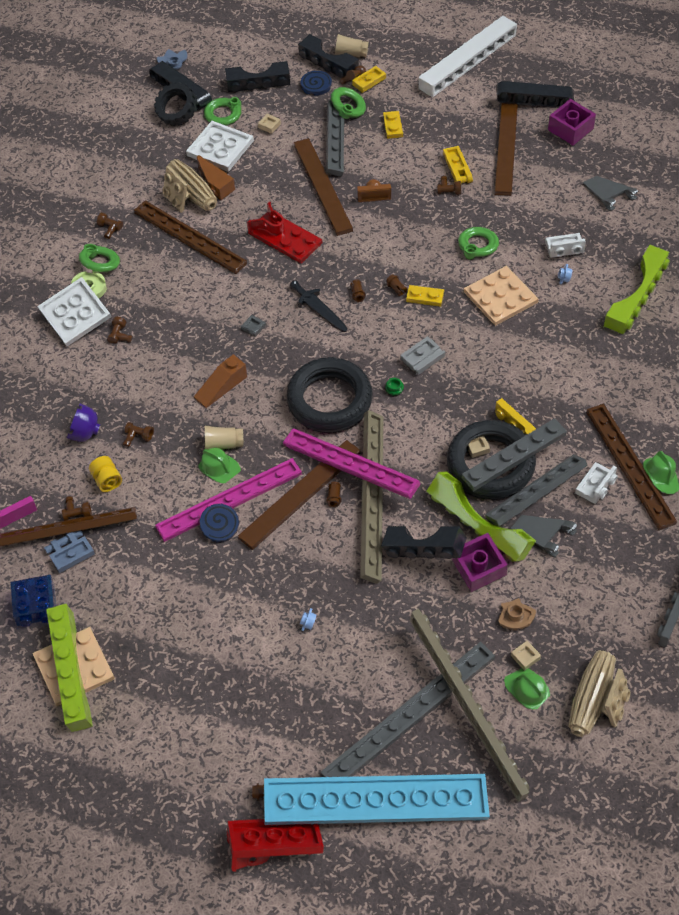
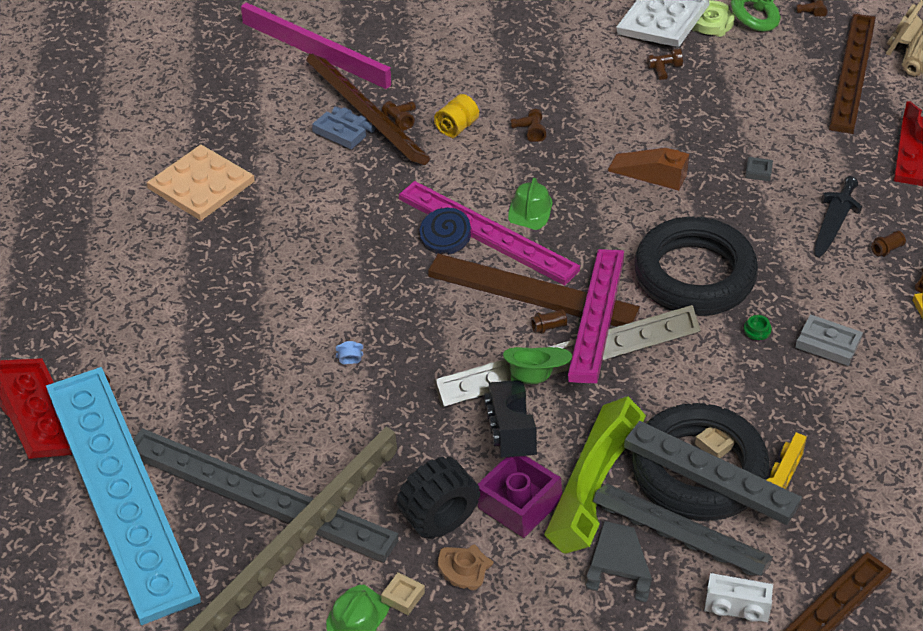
camera: 65 degrees right, 10 degrees down
(31, 599) = (264, 121): clear blue brick -> none
(72, 692) = (146, 192): lime arch -> none
(84, 424) = (511, 73): dark purple cylinder -> none
(223, 437) = (566, 191): tan plant -> none
(383, 510) = (535, 364): none -> bright green piece
(471, 606) = (438, 497): none -> black tyre

